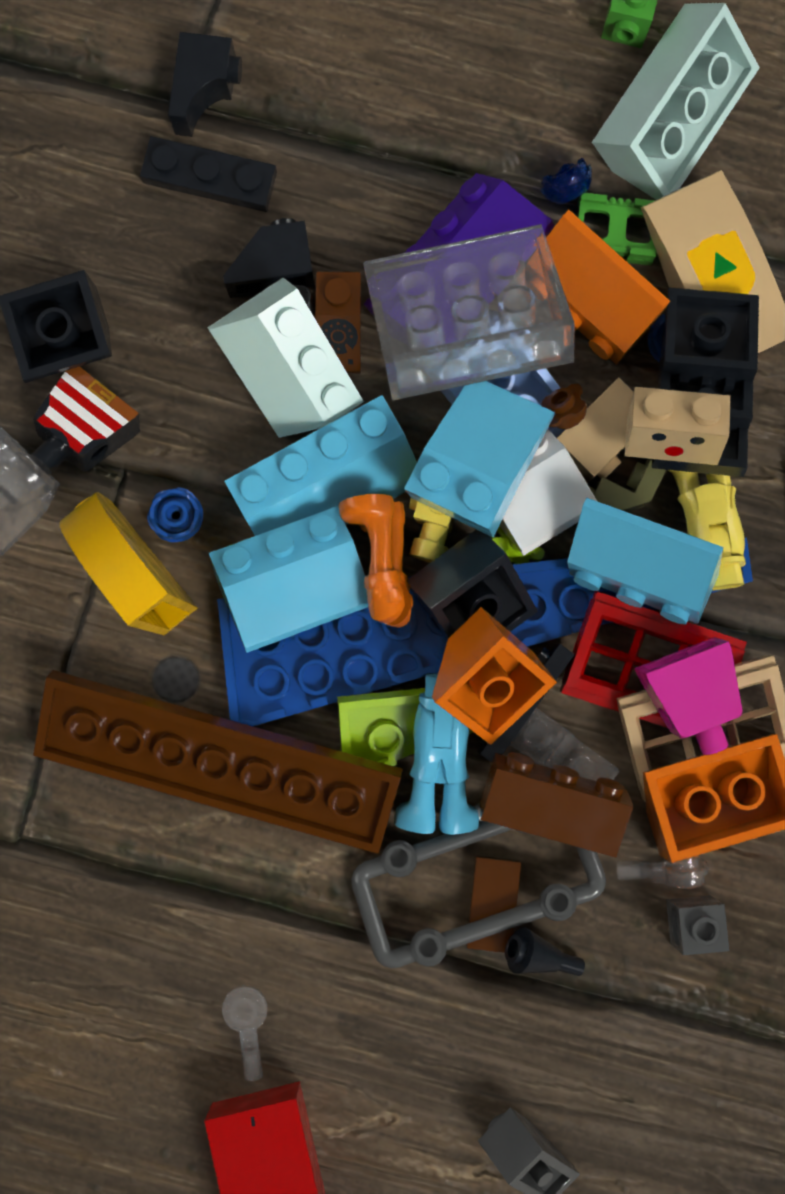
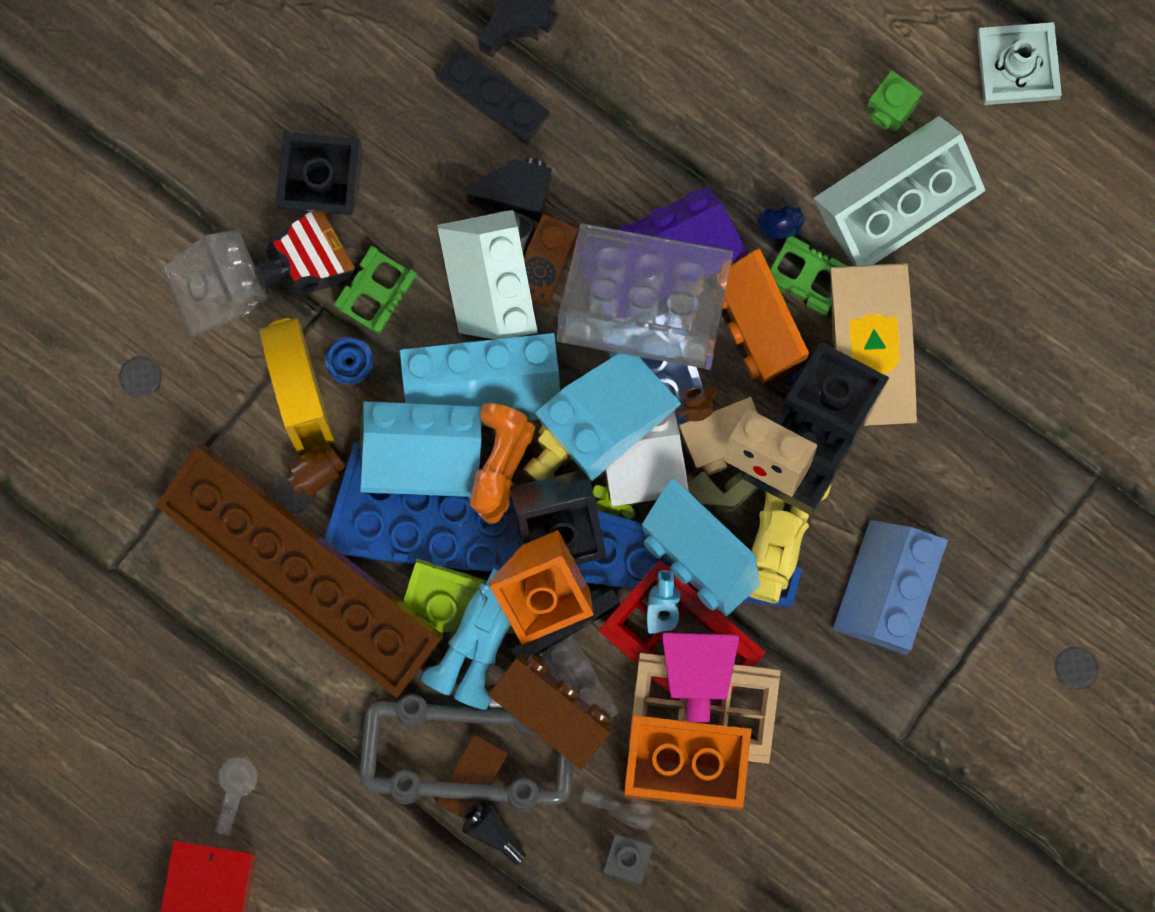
camera: 25 degrees right, 5 degrees down
(158, 427) = (366, 285): none -> bright green piece
(187, 647) = (314, 470): none -> reddish brown brick
(621, 631) = (663, 598): none -> medium azure piece

